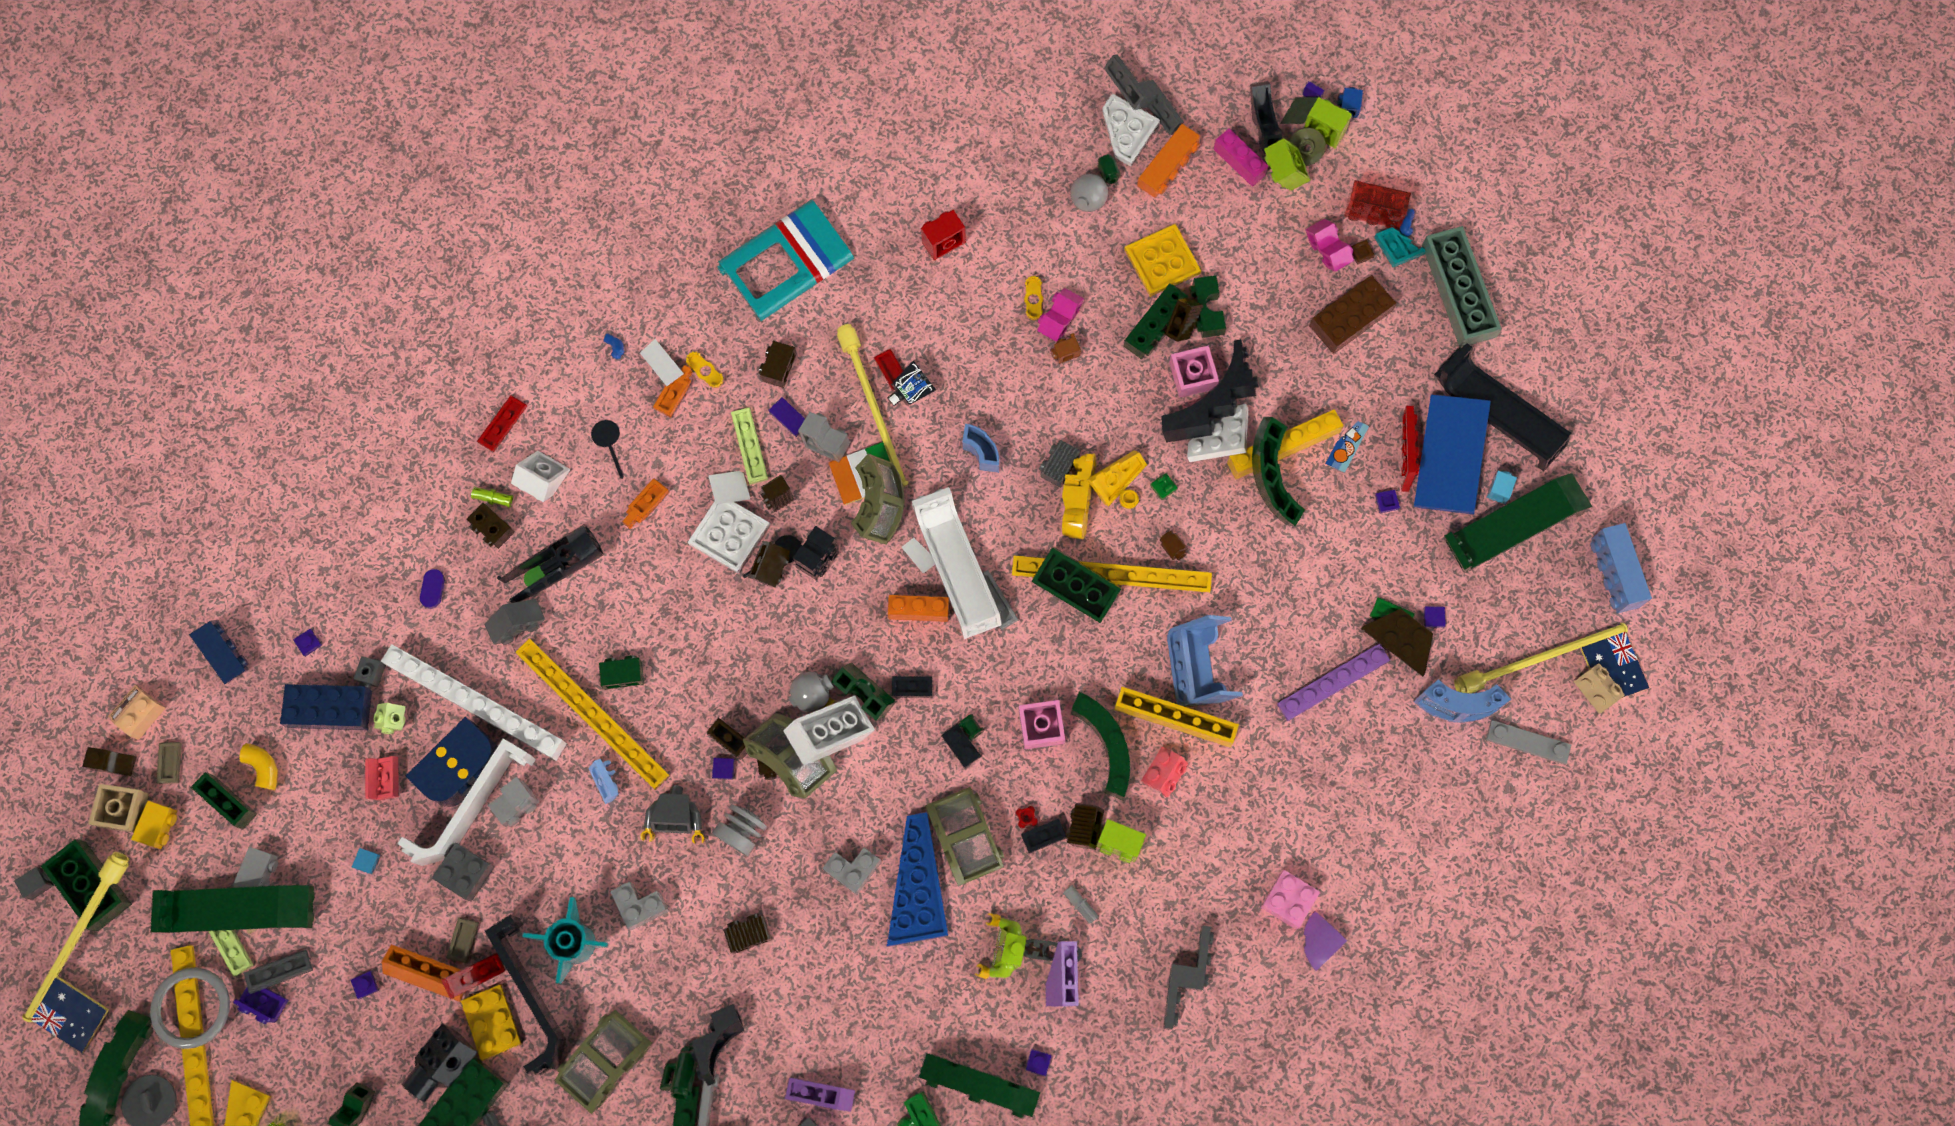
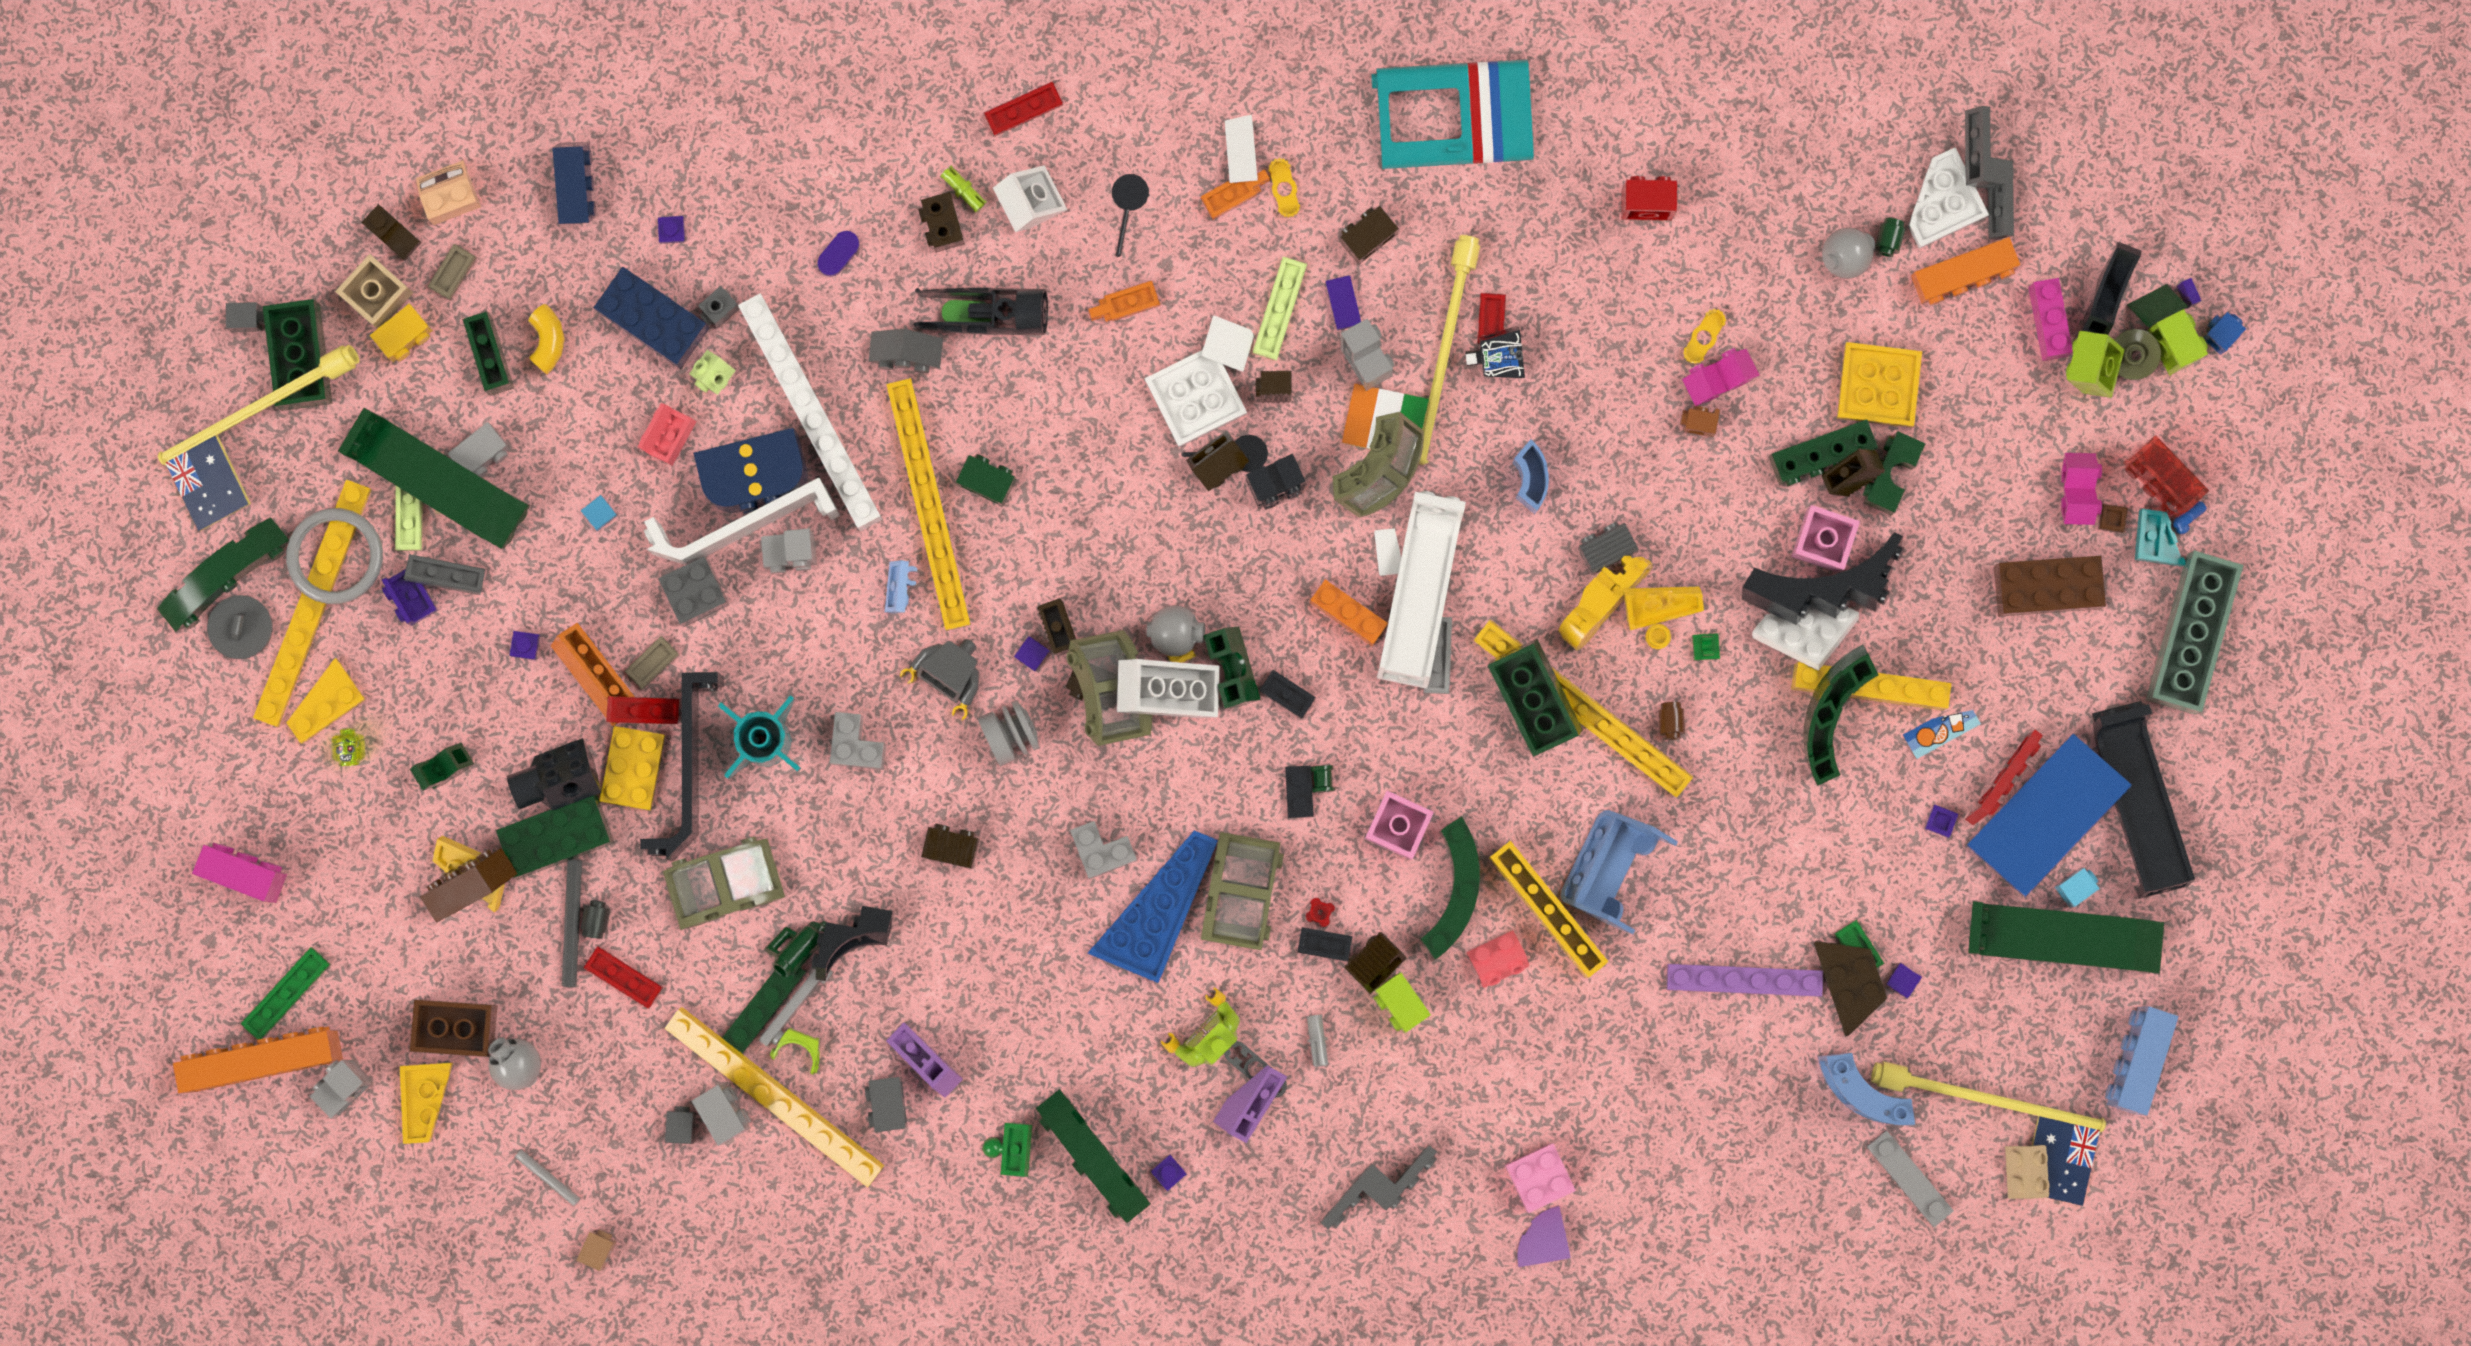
camera: 30 degrees right, 10 degrees up
(617, 346) = (1204, 96): blue arm -> none

